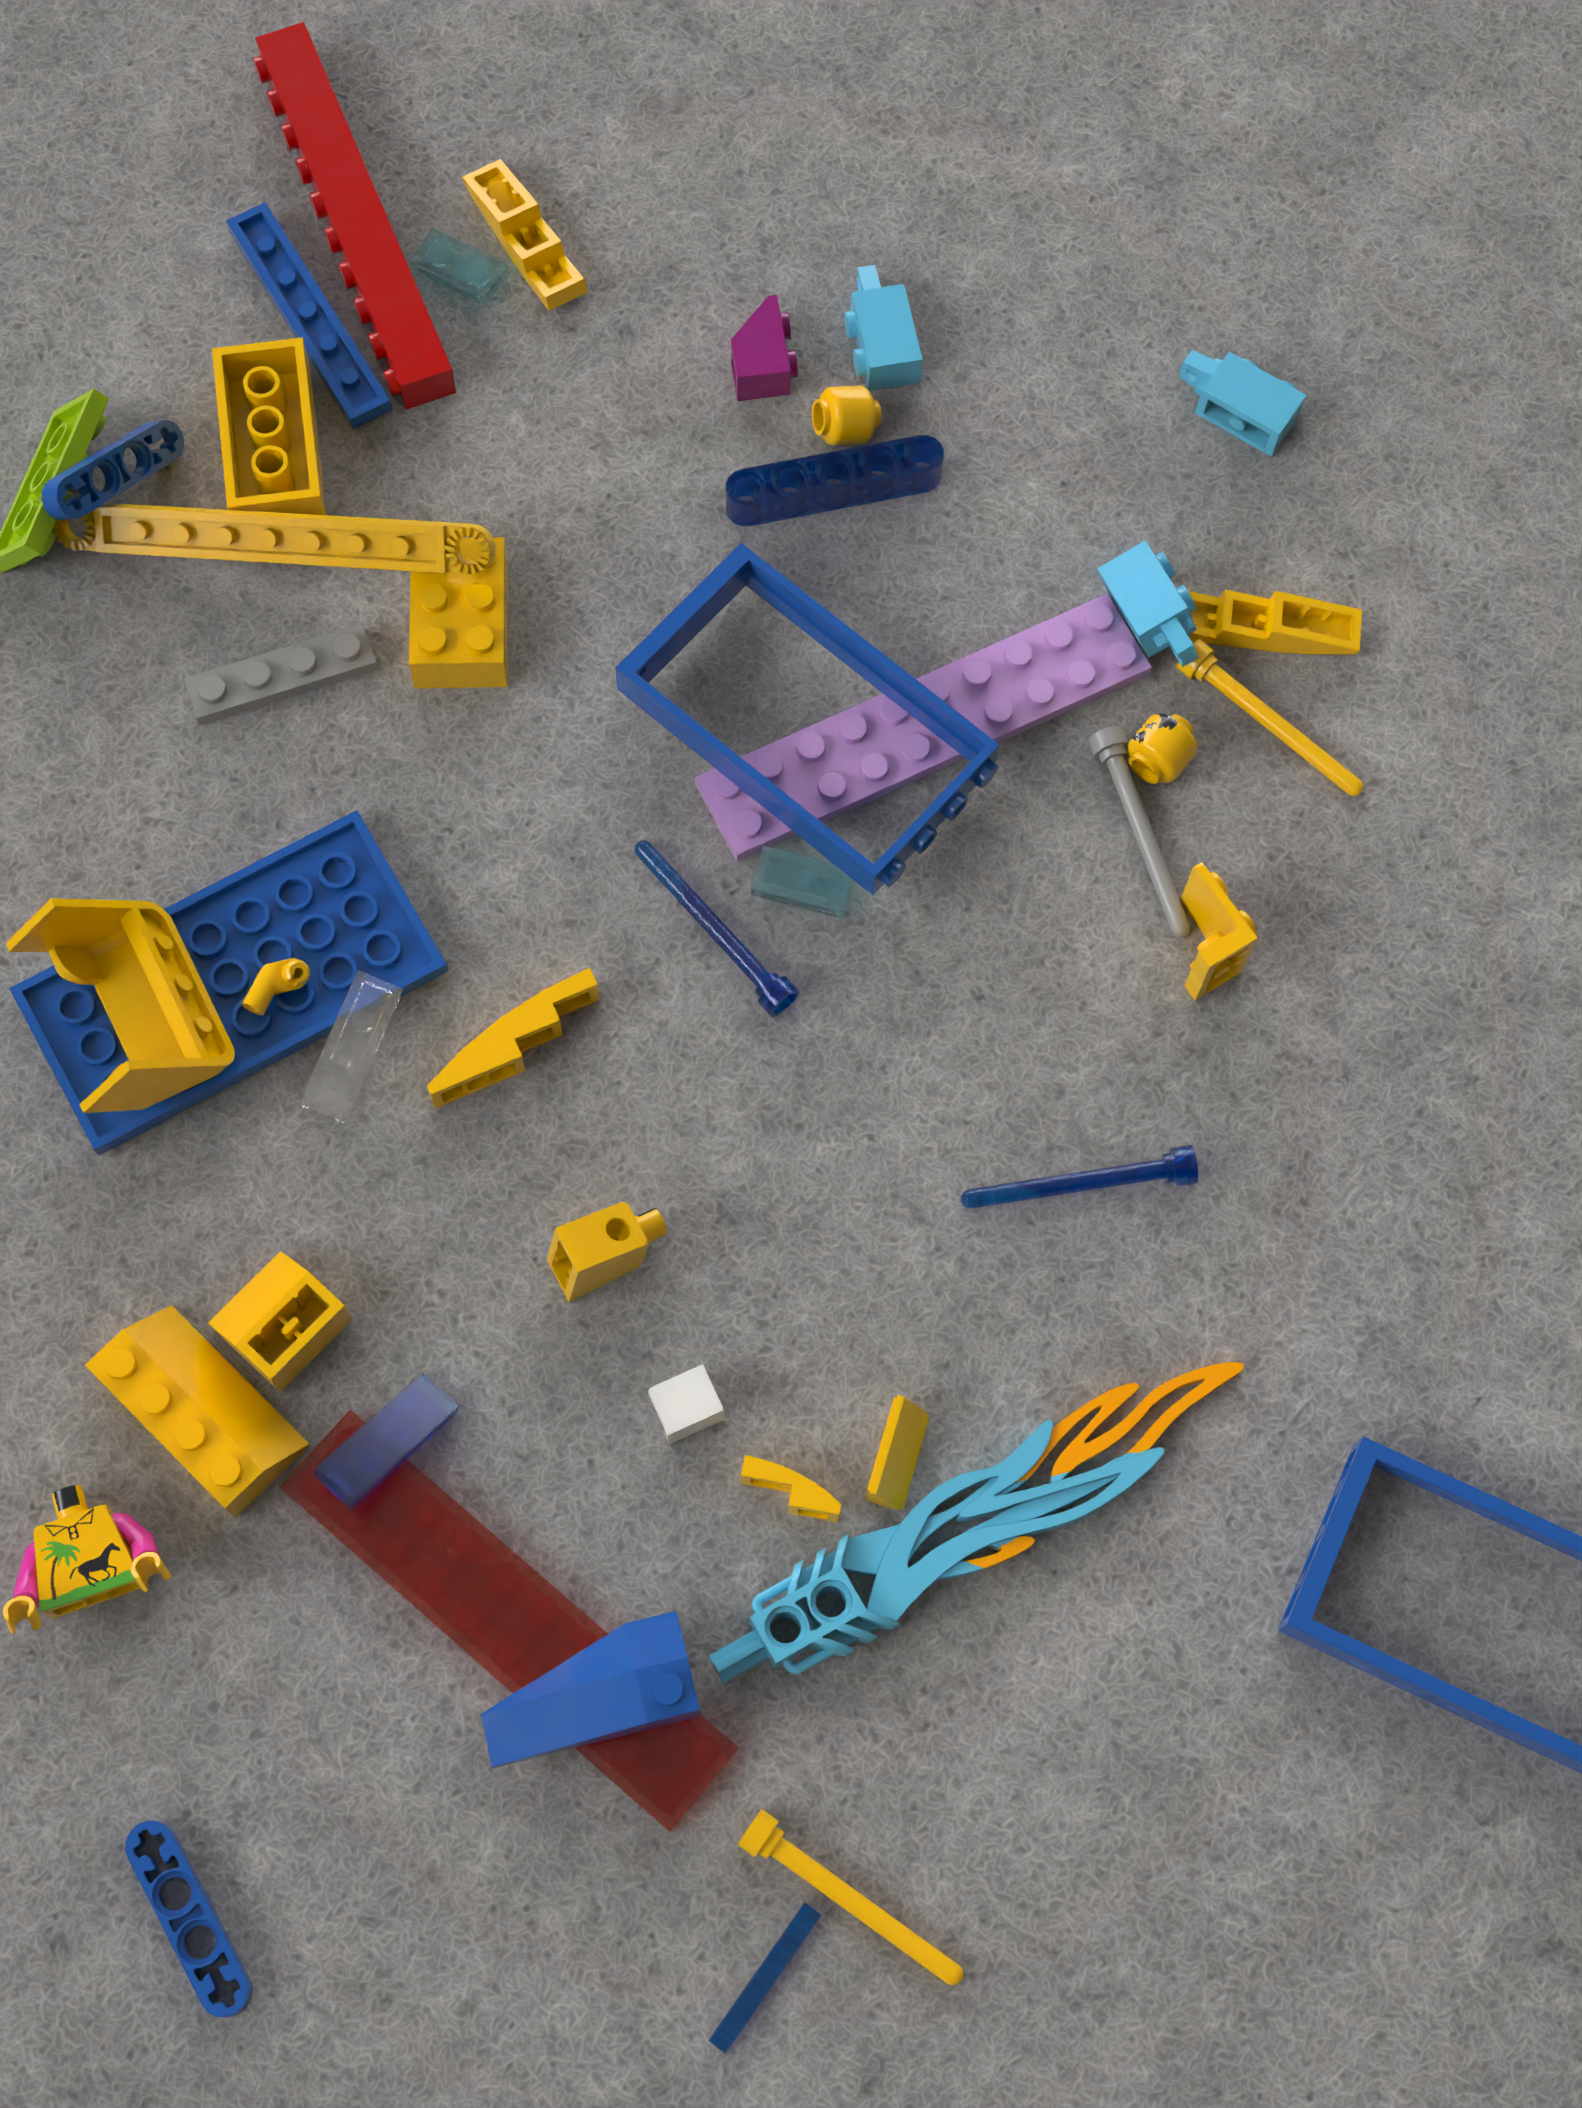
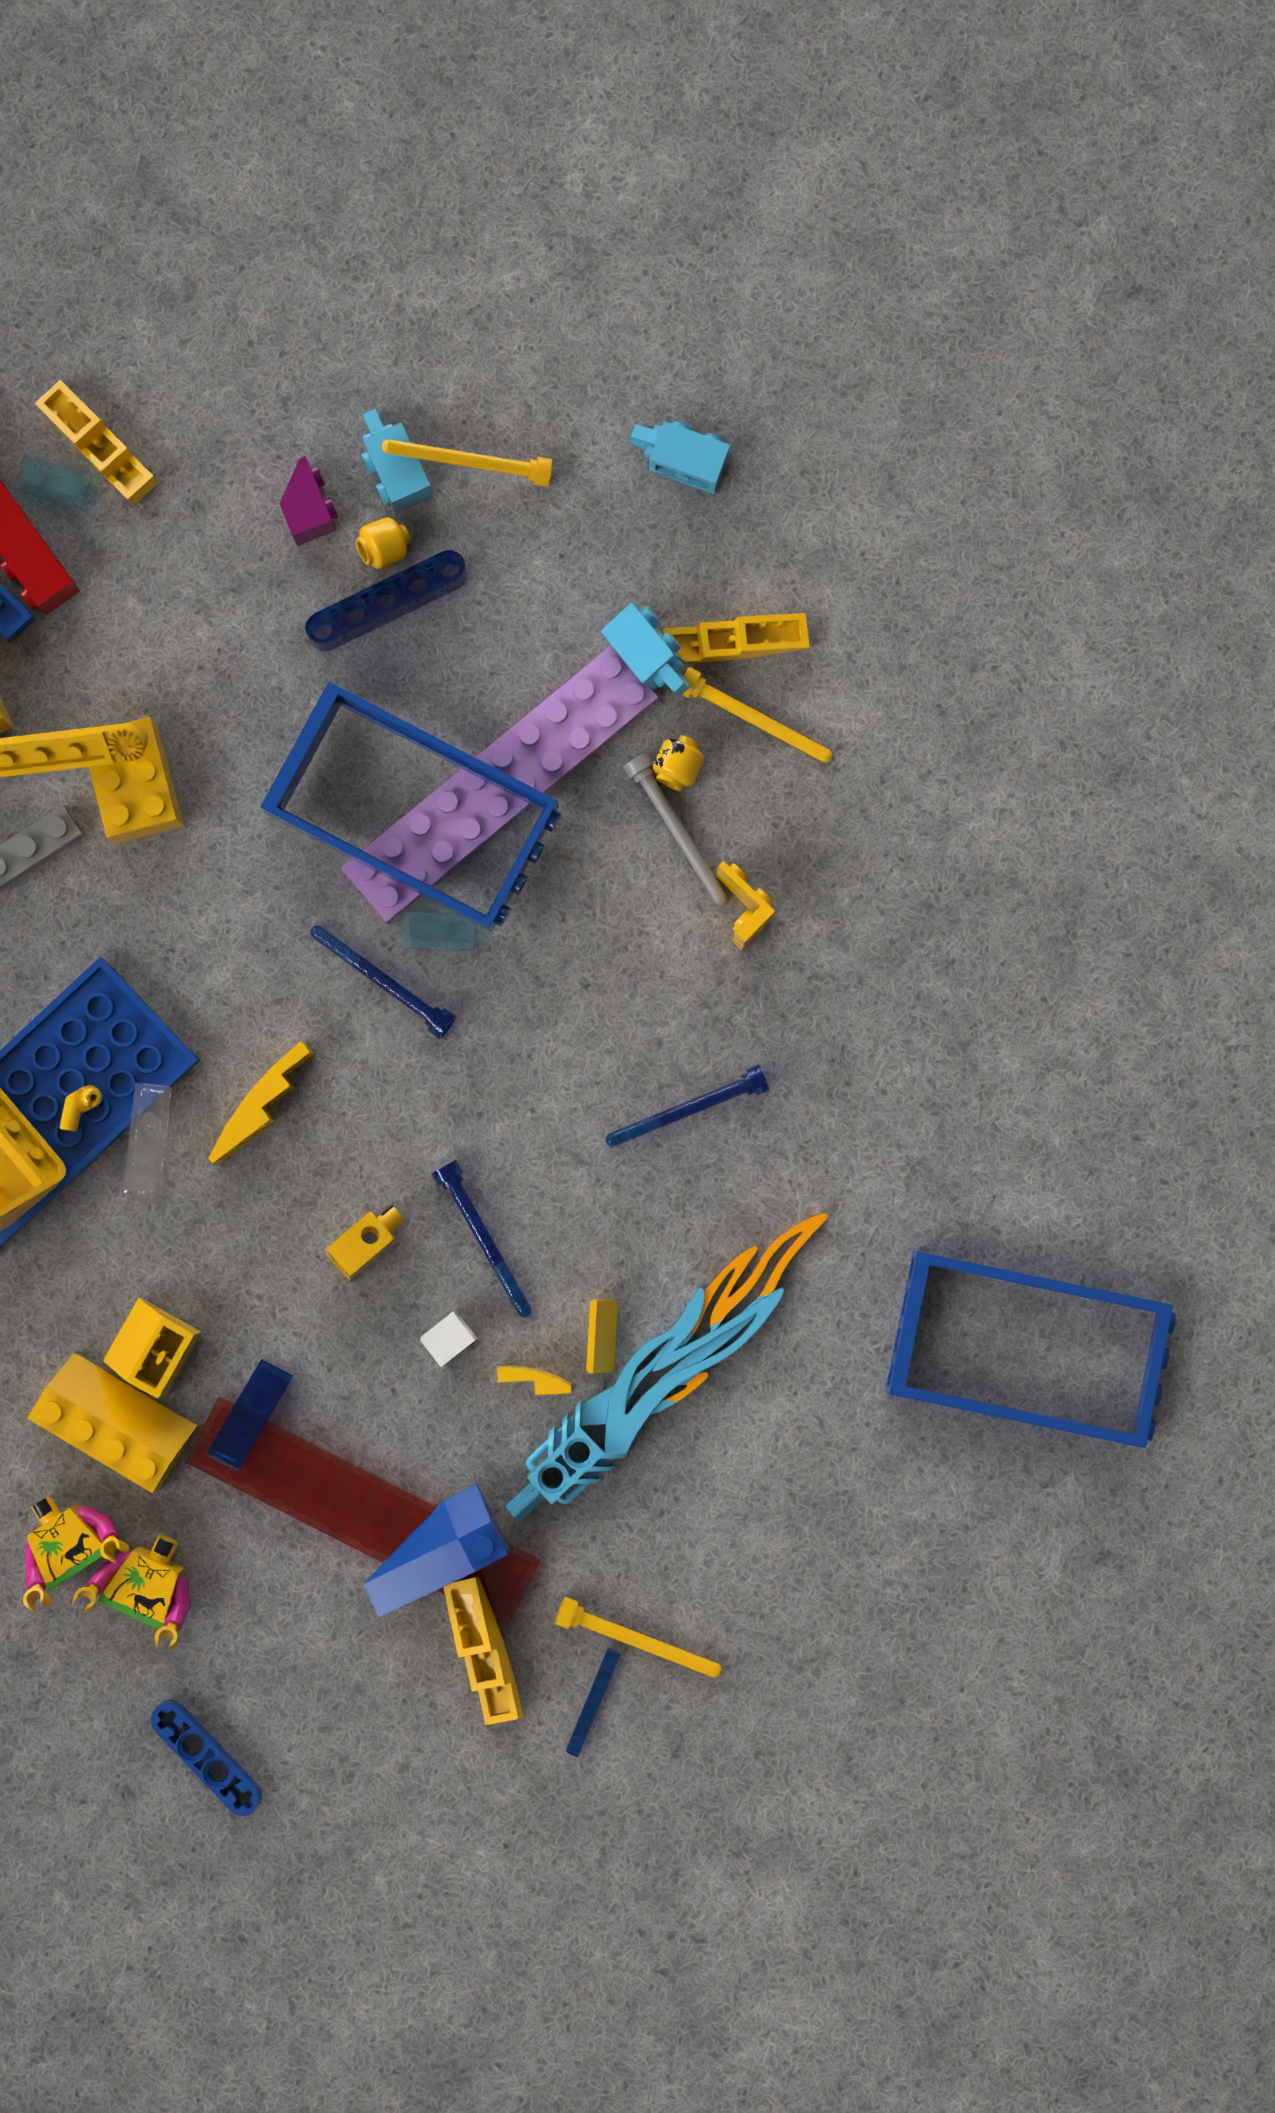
camera: 15 degrees left, 15 degrees up
(171, 1645) = (144, 1587): none -> torso
(627, 1856) = (484, 1650): none -> yellow slope
(740, 1194) = (450, 1179): none -> clear blue piece
(1054, 377) = (535, 470): none -> yellow piece

